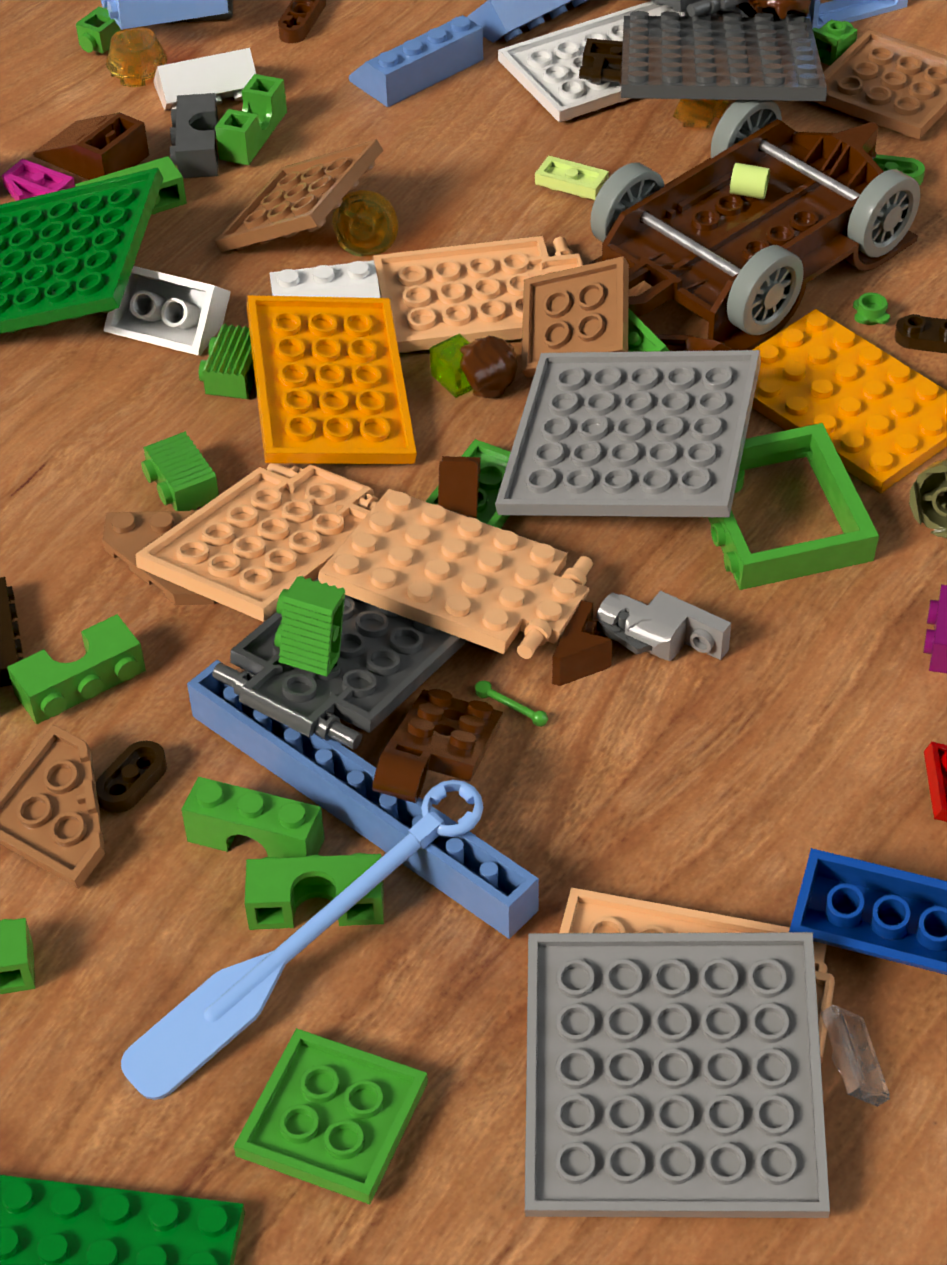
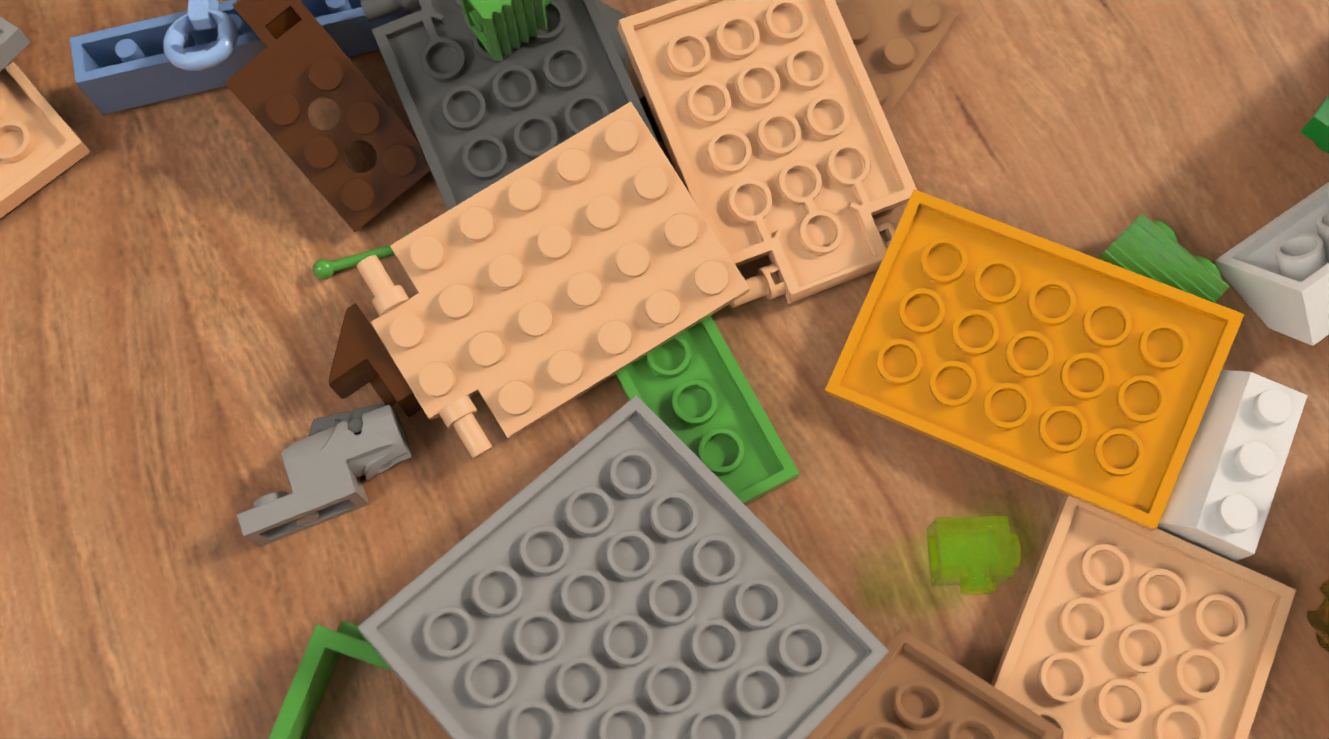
camera: 125 degrees right, 25 degrees up
(180, 473) = (974, 112): bright green brick -> none
(459, 484) = (706, 383): reddish brown slope -> none
(489, 366) = (927, 575): reddish brown hair -> none

